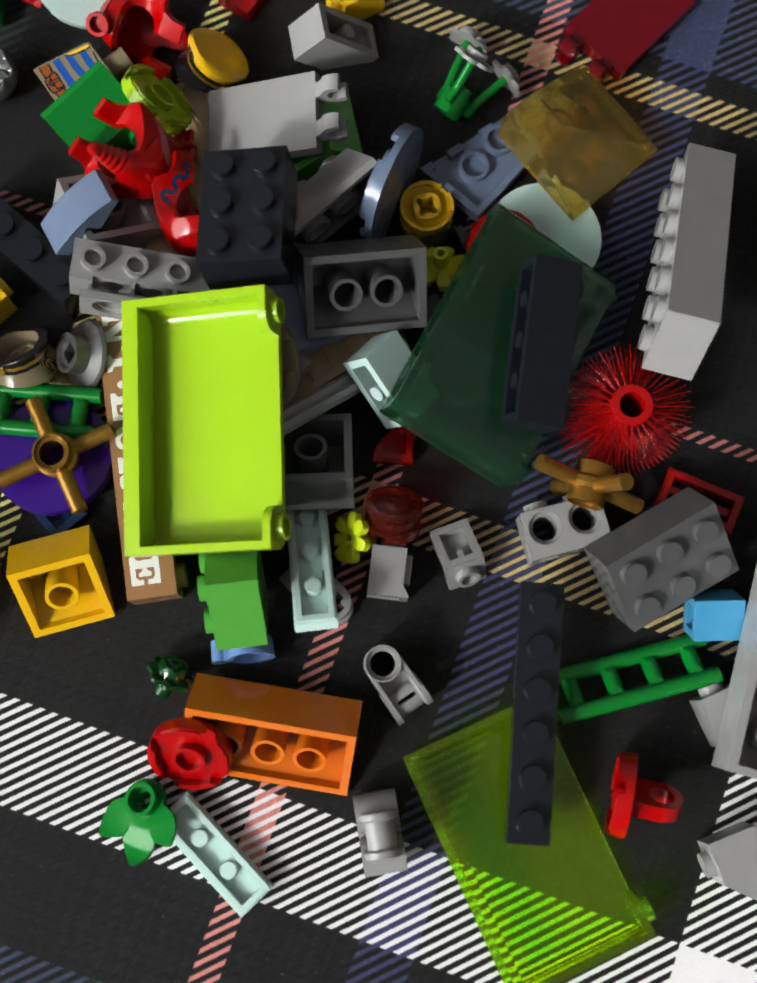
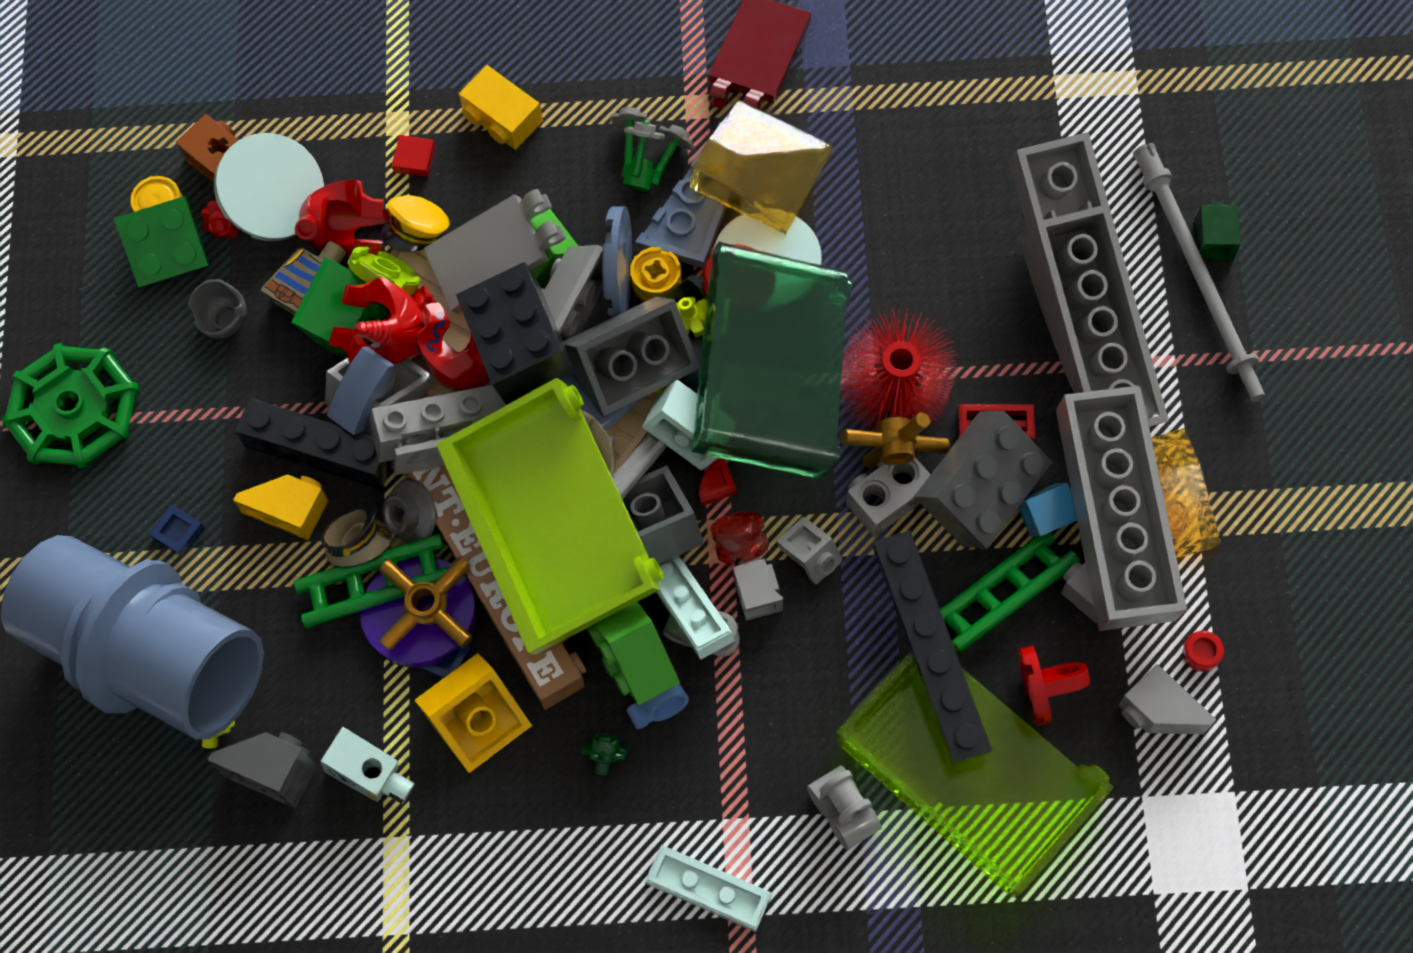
camera: 15 degrees left, 10 degrees down
(140, 825) = (634, 890): green plate -> none
(190, 753) = (651, 806): red tile -> none
(281, 731) = (715, 765): orange slope -> none
(331, 39) = (510, 164): light grey slope -> none
(352, 538) = (712, 572): neon yellow plant -> none
(397, 685) = (803, 678): light grey piece -> none
(542, 344) = (805, 341): black brick -> none
(689, 262) = (897, 226): light grey brick -> none

